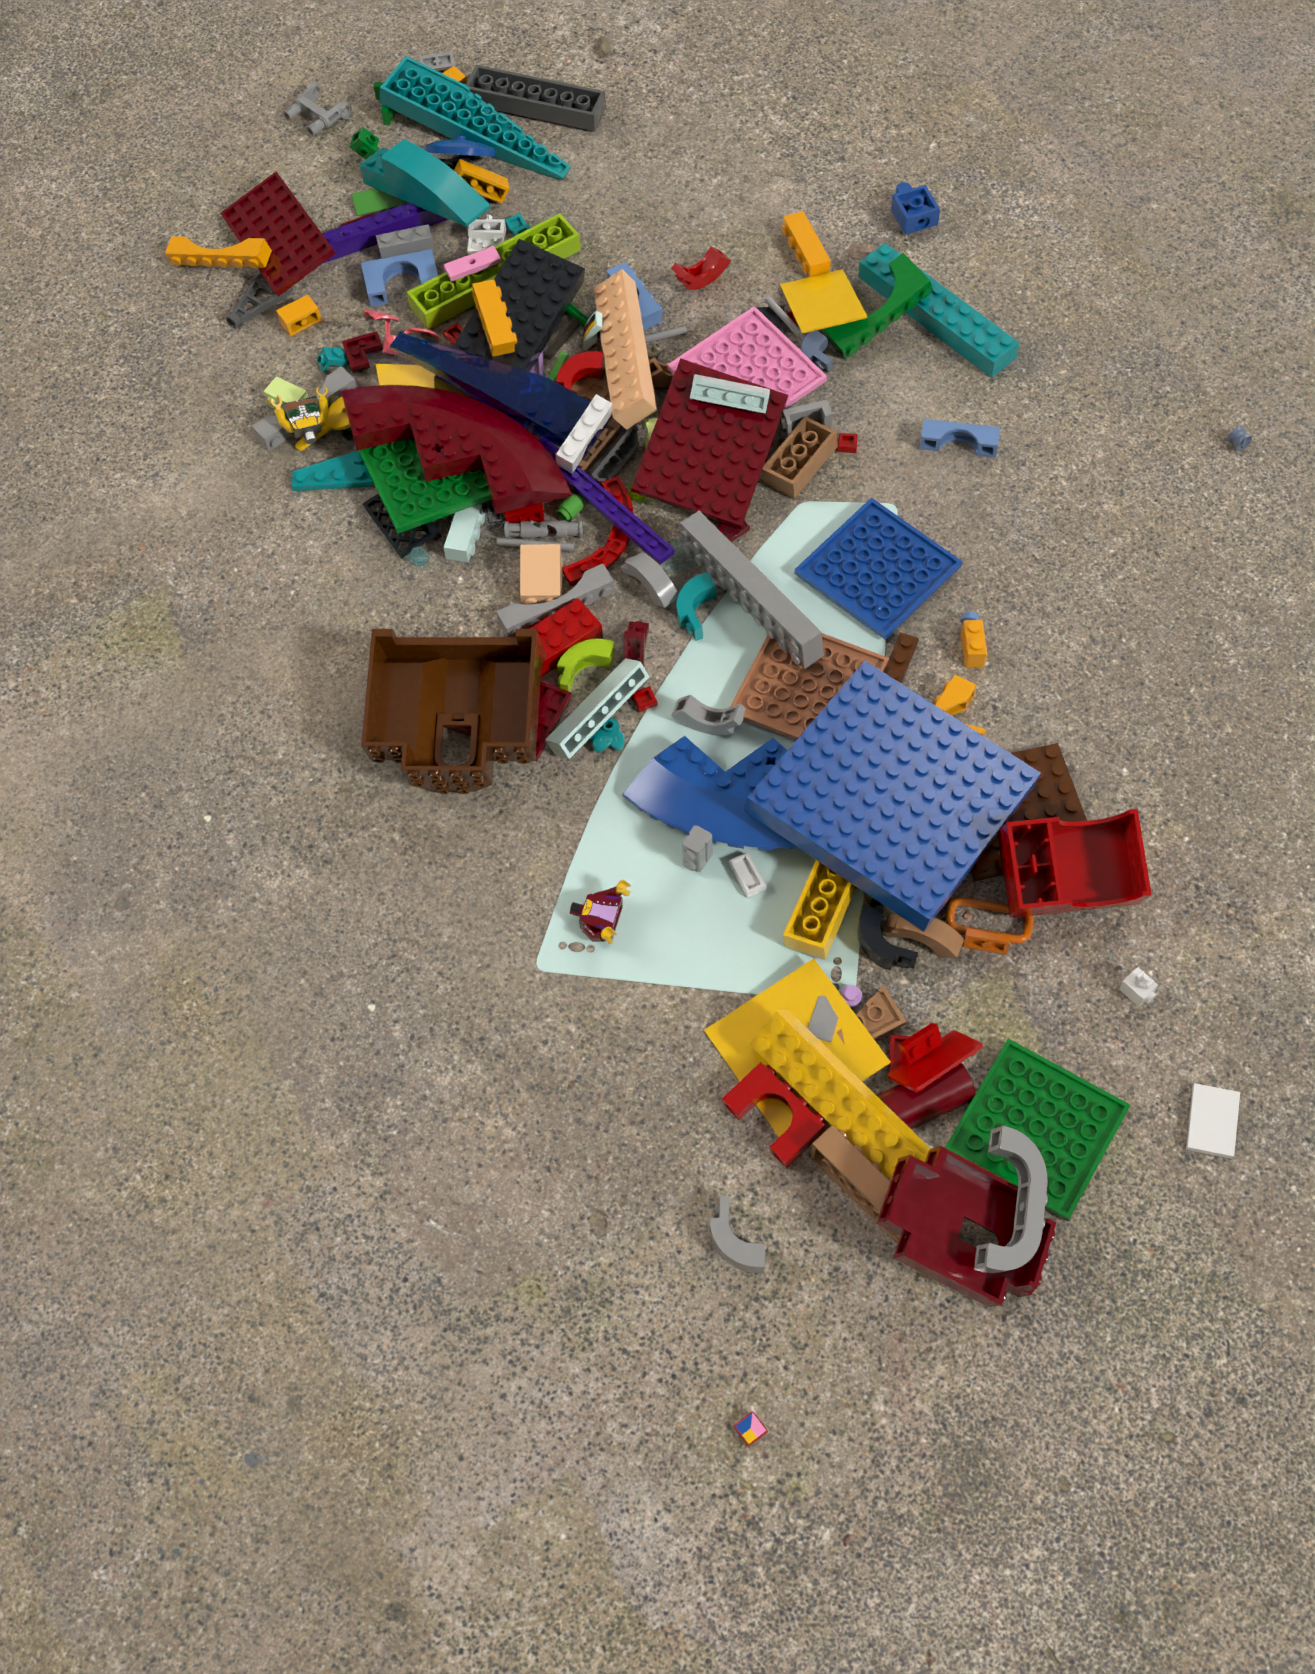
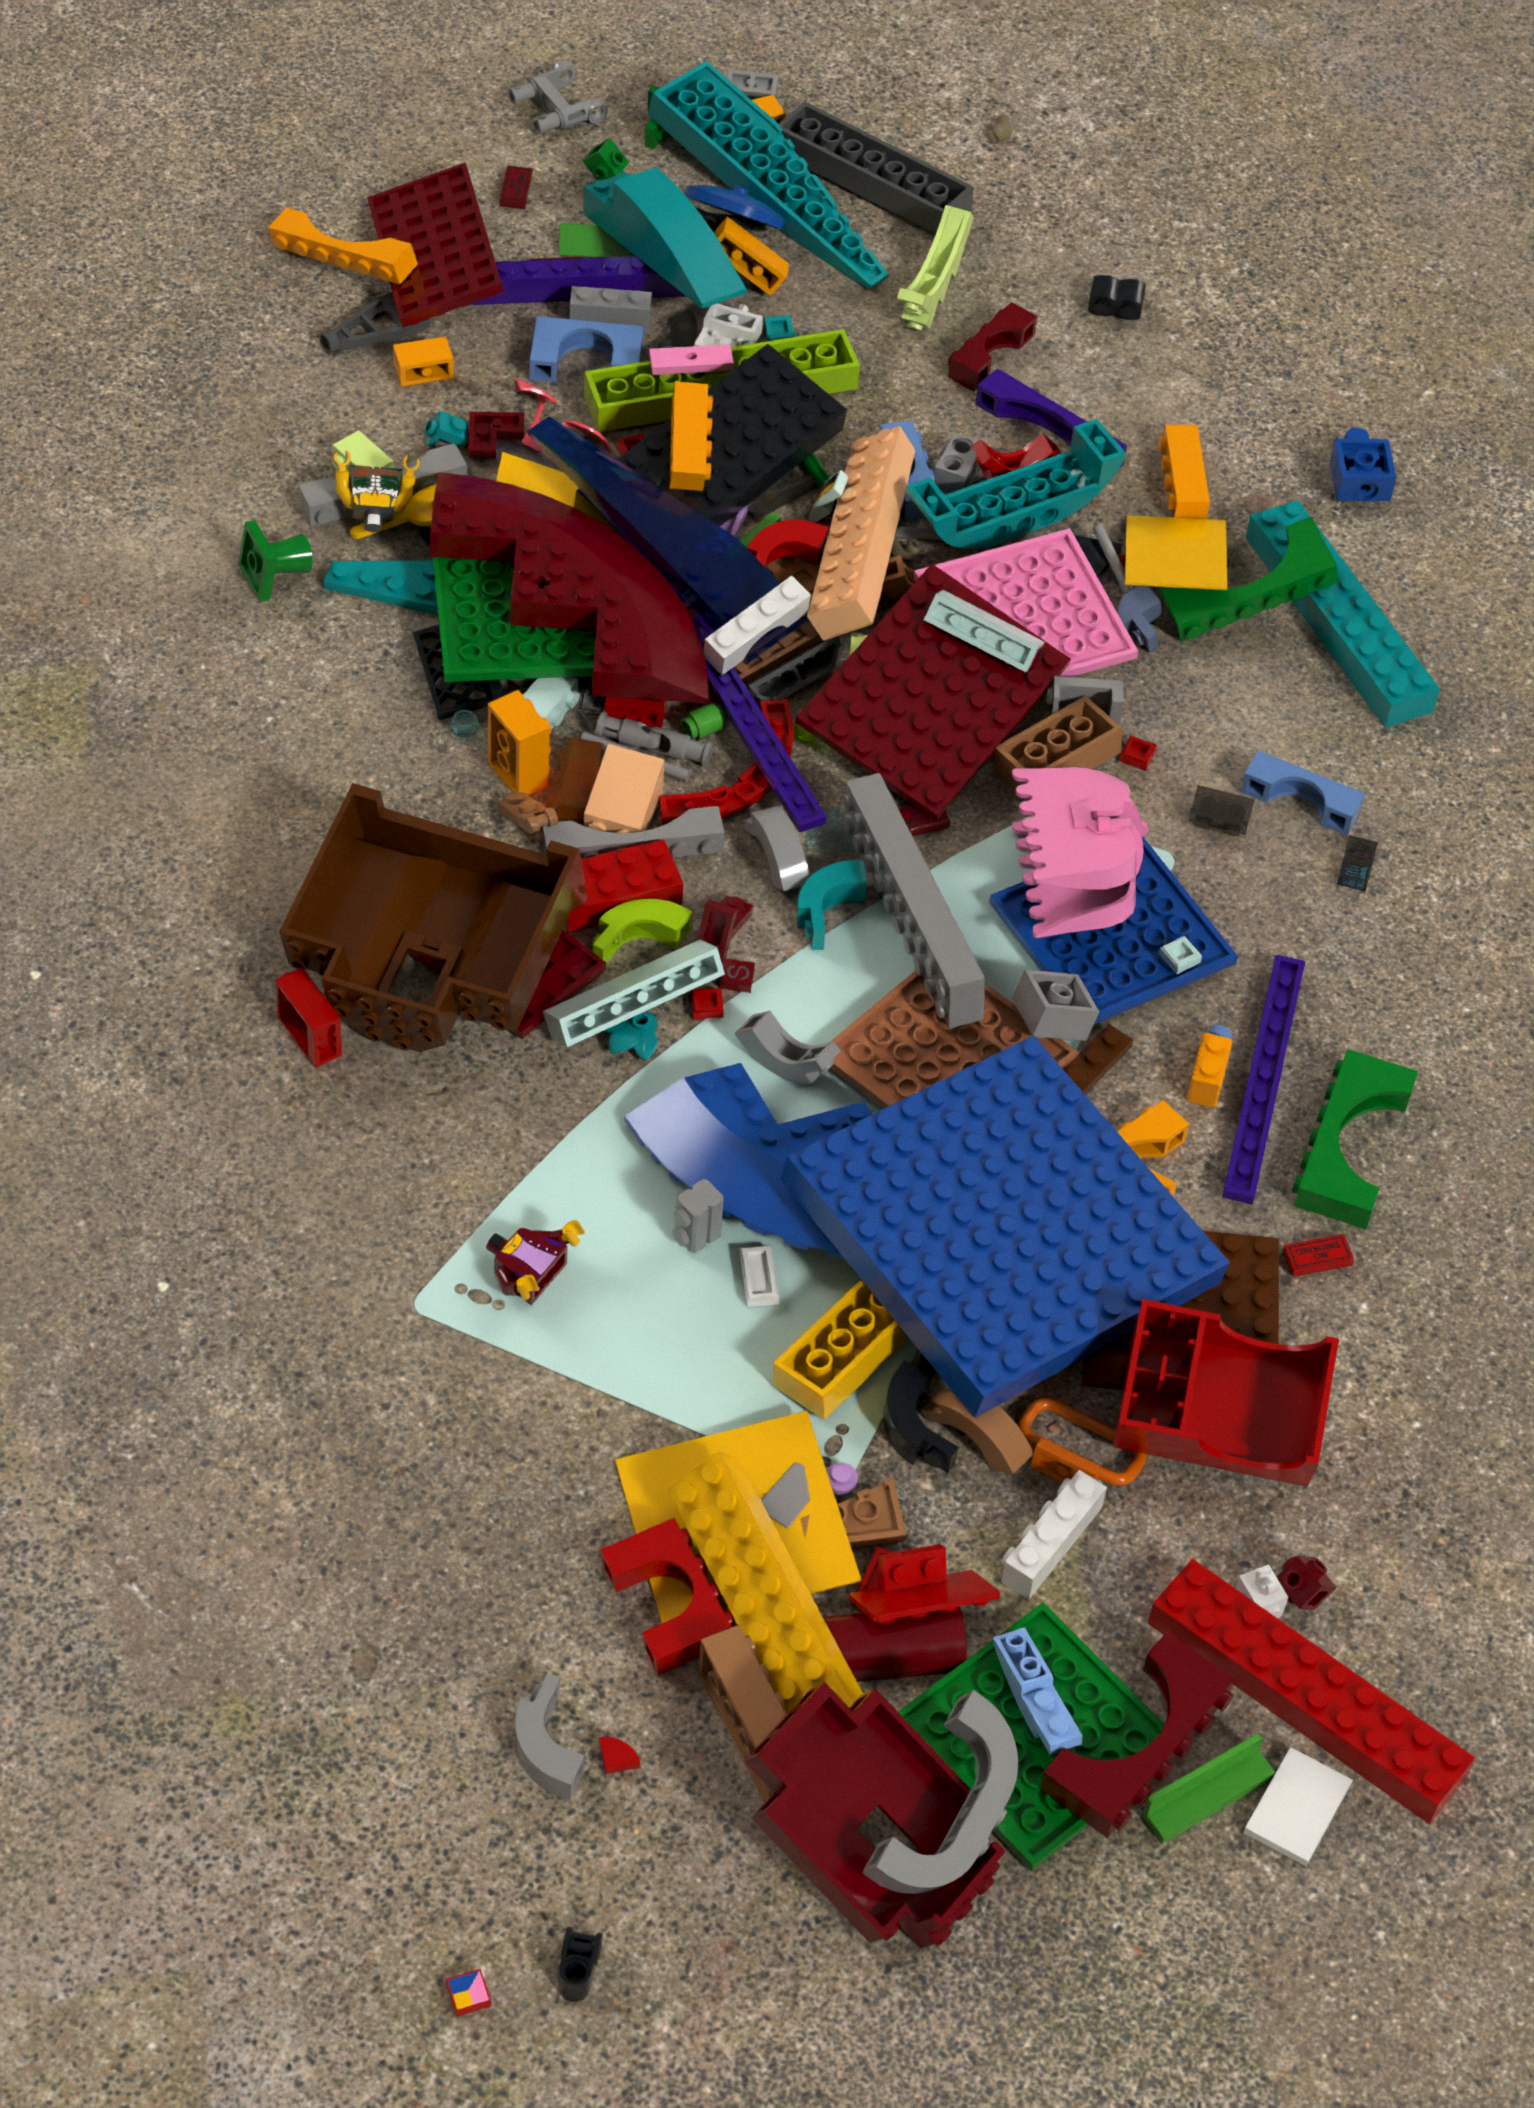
camera: 10 degrees right, 10 degrees down
(248, 485) = (263, 559): none -> green plant
(312, 177) = (516, 187): none -> dark red tile
(397, 793) = (308, 1017): none -> red window
(456, 246) = (682, 331): none -> clear smoke tile
(462, 562) = (518, 743): none -> light orange brick
(483, 606) = (527, 812): none -> medium nougat plate
(504, 574) = (575, 779): none -> clear orange brick
(602, 153) = (939, 266): none -> yellowish green arch
(657, 673) = (738, 975): none -> dark red tile
(660, 181) = (1008, 329): none -> dark red arch
(663, 282) = (957, 464): none -> light grey brick
(677, 228) = (1010, 398): none -> dark purple arch
(716, 291) = (1024, 497): none -> teal slope
(719, 139) = (1116, 297): none -> black brick
(782, 1233) = (617, 1755): none -> red tile
(812, 1380) = (578, 1958): none -> black piece
(843, 521) = (1080, 846): none -> bright pink animal
(865, 632) = (1055, 1005): none -> light grey slope
(914, 466) = (1221, 811): none -> clear smoke bracket
(927, 572) = (1180, 955): none -> light aqua tile
(997, 989) = (1053, 1534): none -> white brick
(1008, 639) = (1263, 1080): none -> dark purple plate
(1009, 474) = (1357, 863): none -> clear smoke tile
(1029, 1104) = (1034, 1691): none -> light blue slope
(1074, 695) = (1328, 1182): none -> green arch
(1085, 745) = (1318, 1255): none -> red tile
(1098, 1155) = (1108, 1790): none -> dark red arch
(1155, 1131) = (1207, 1790): none -> bright green panel
(1163, 969) = (1305, 1582): none -> dark red brick
(1194, 1042) = (1313, 1691): none -> red brick

